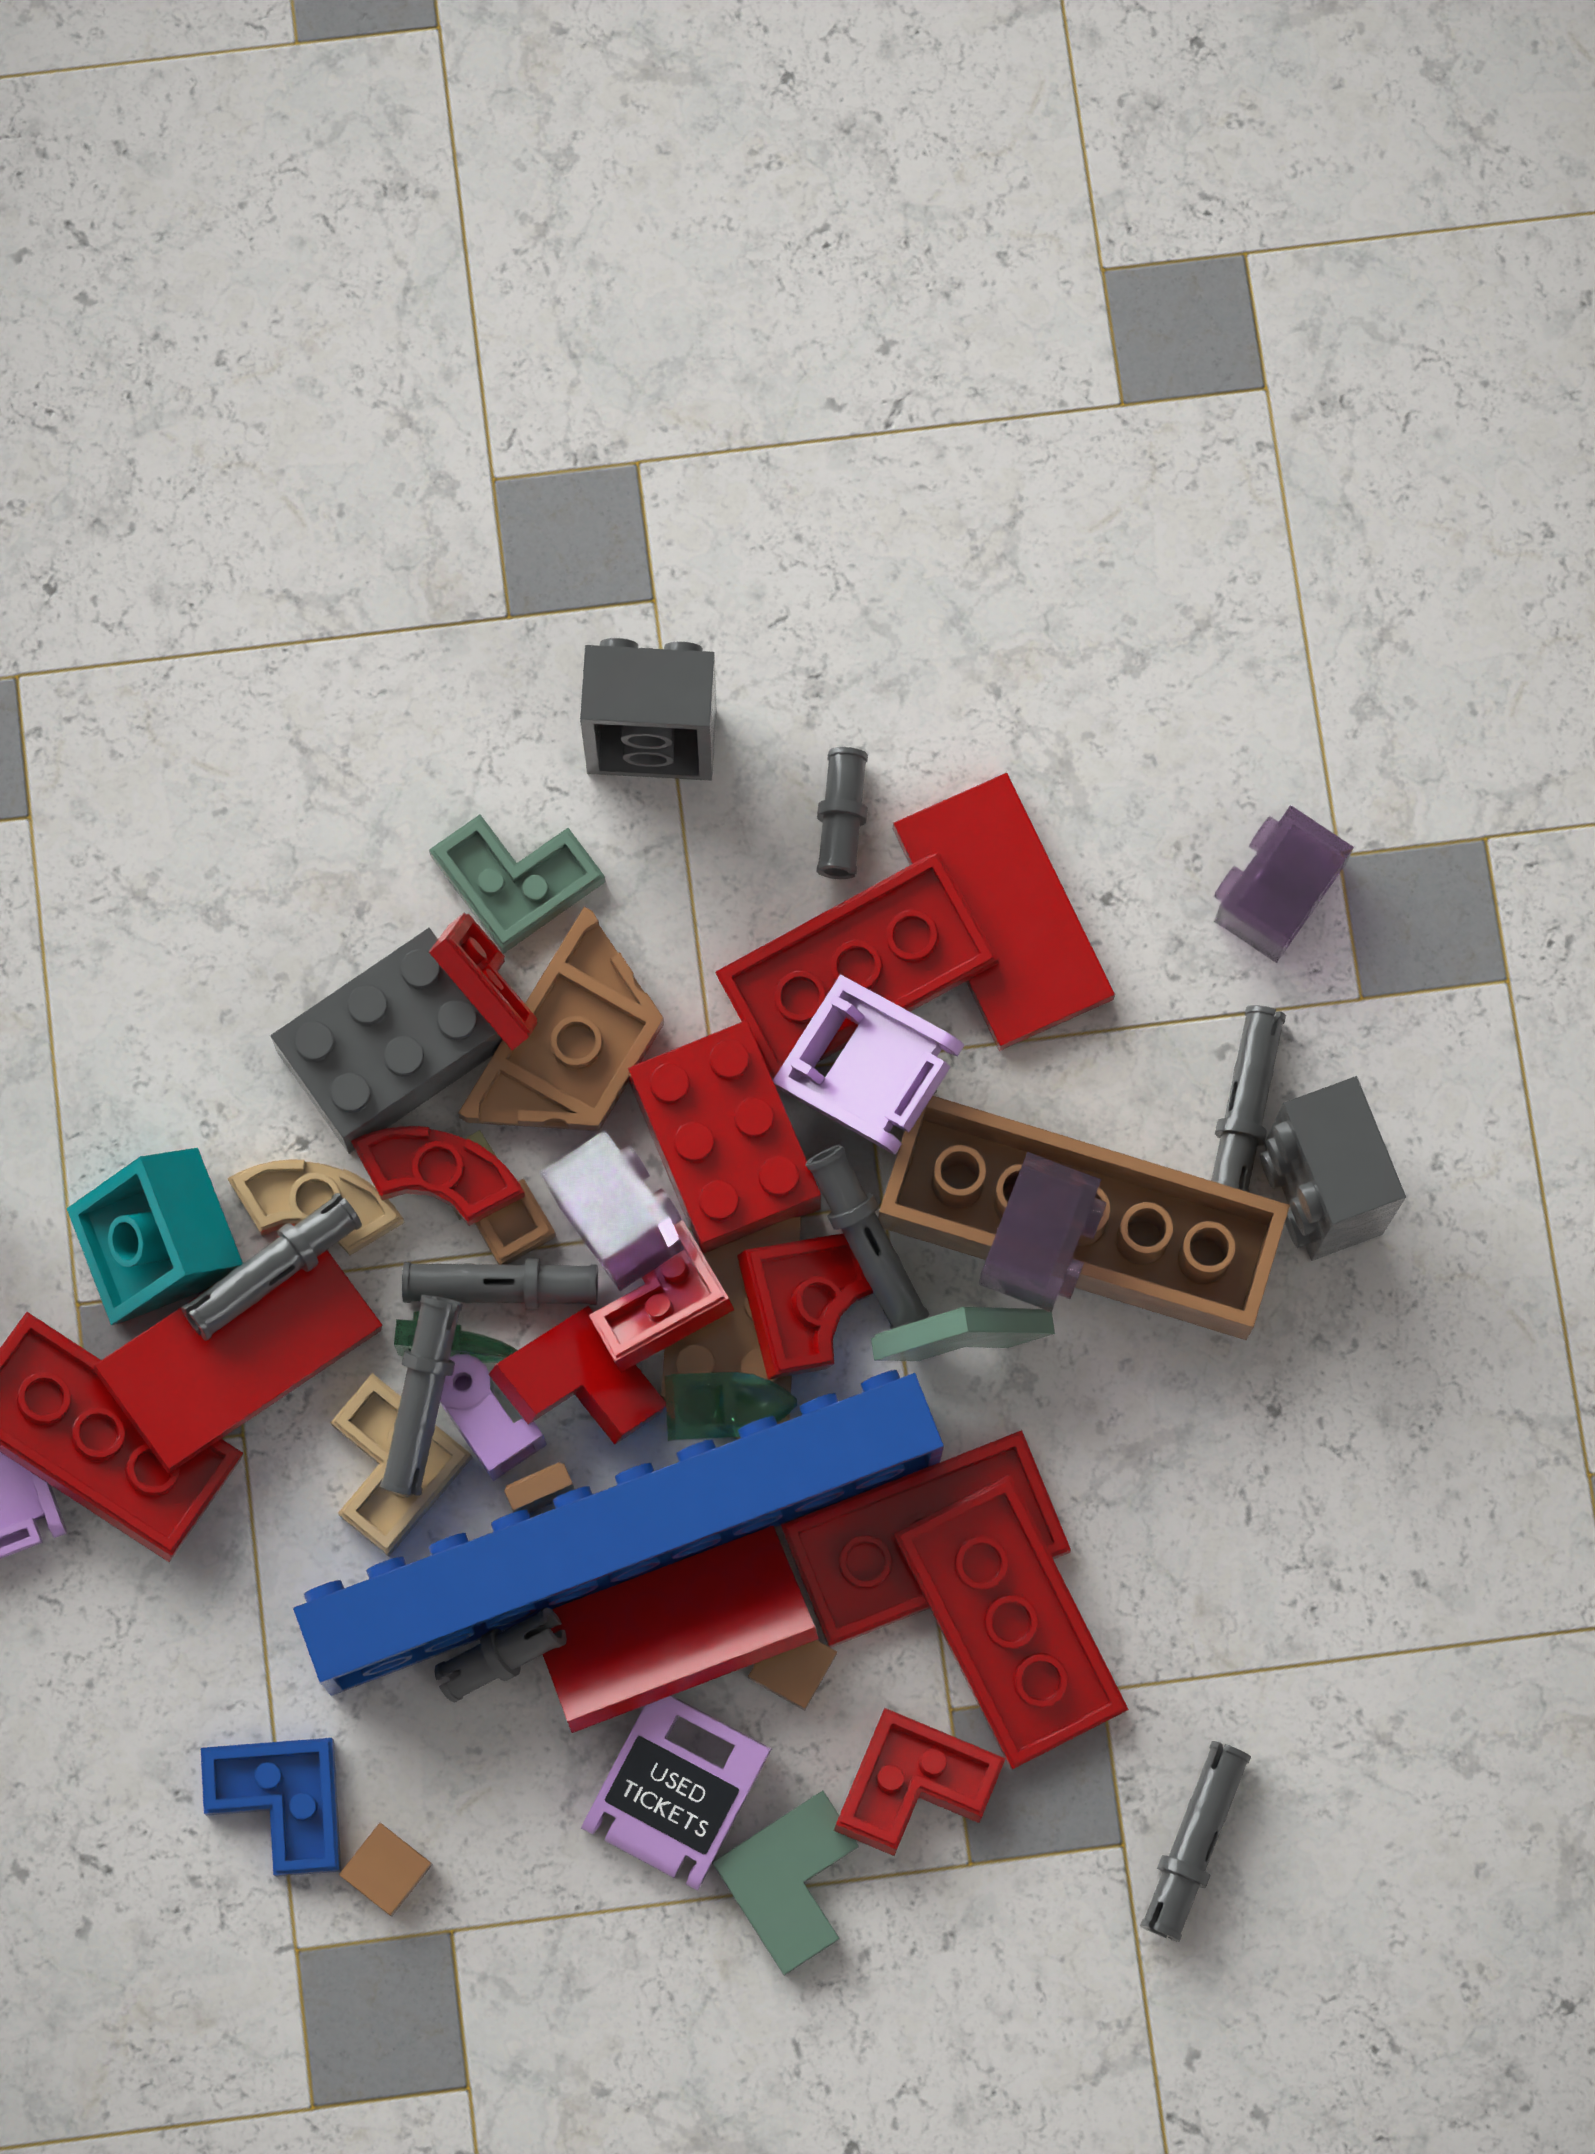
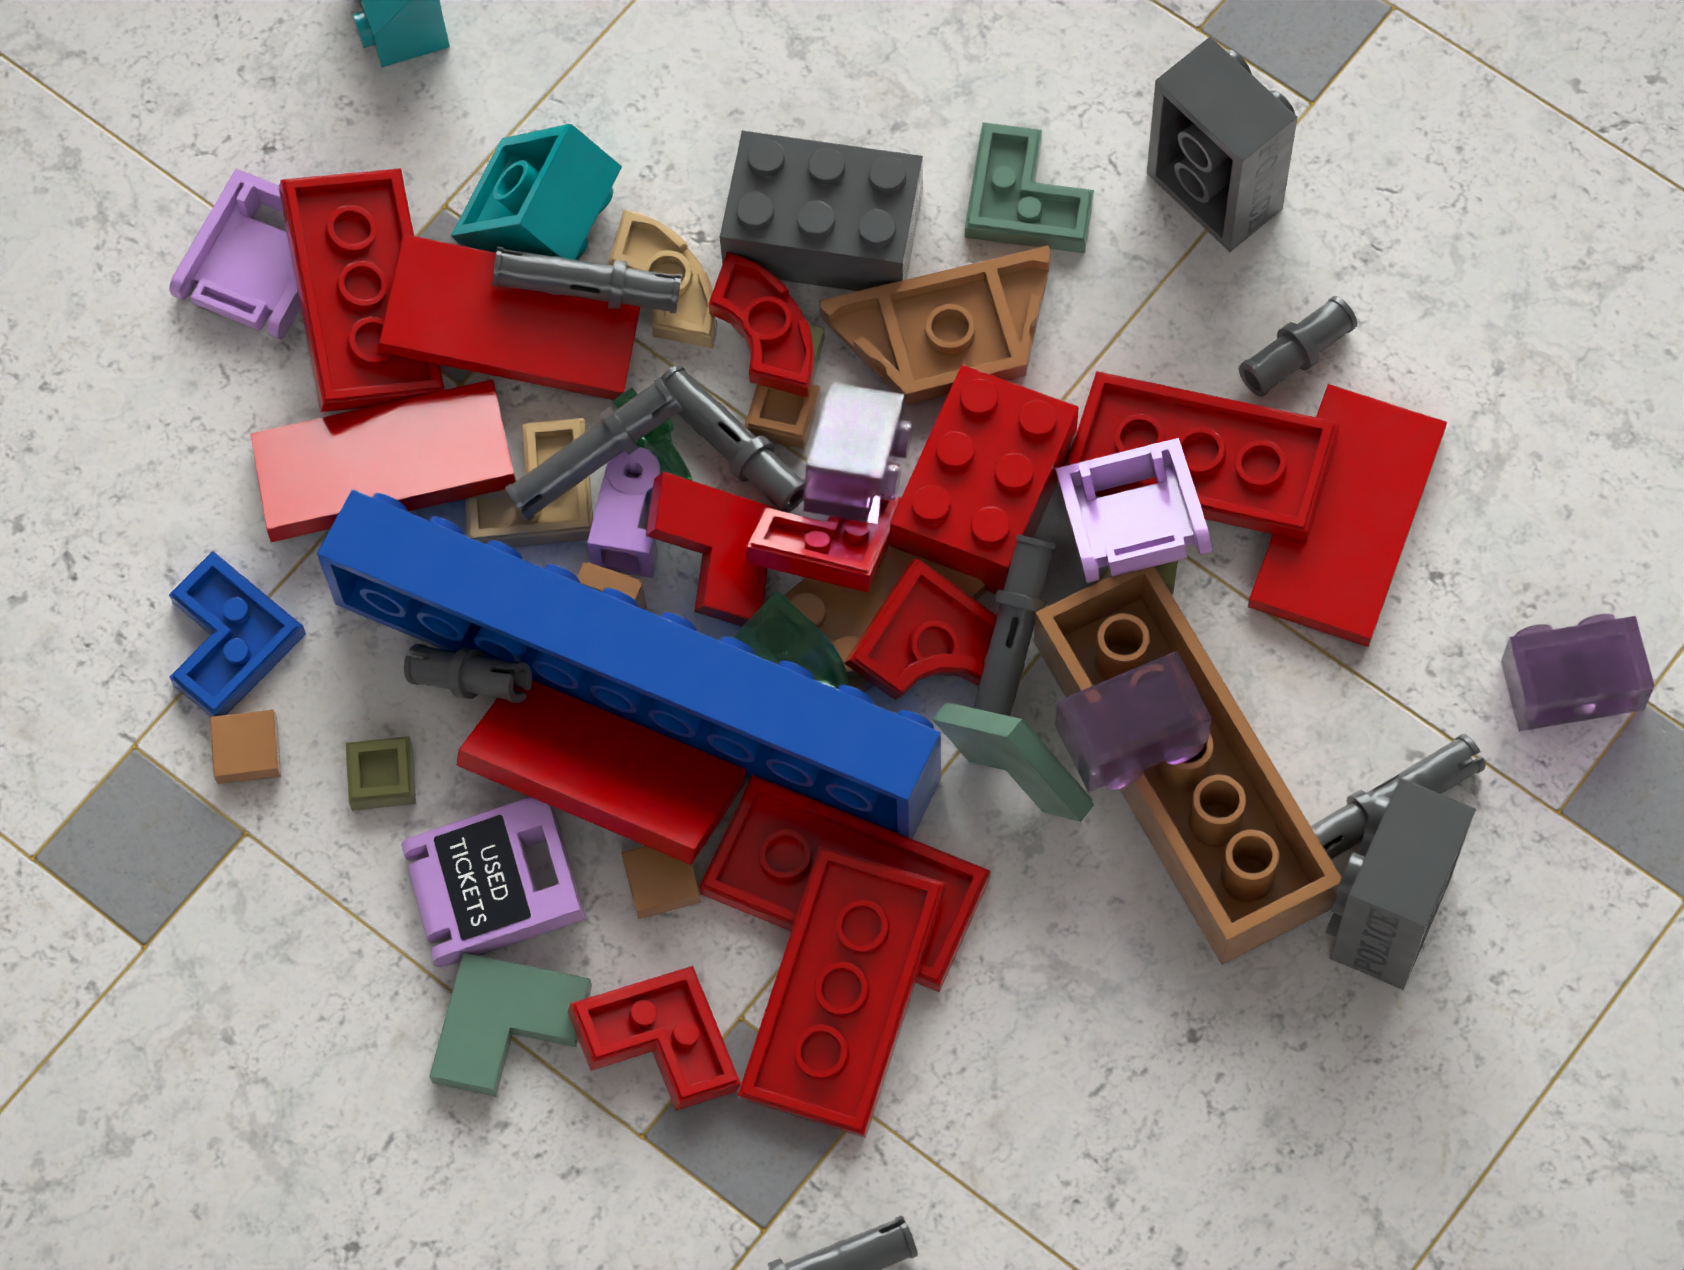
camera: 50 degrees right, 10 degrees down
(256, 1553) = (410, 449): none -> tile
(474, 965) = (926, 212): red tile -> none
(506, 1789) = (380, 773): none -> olive tile

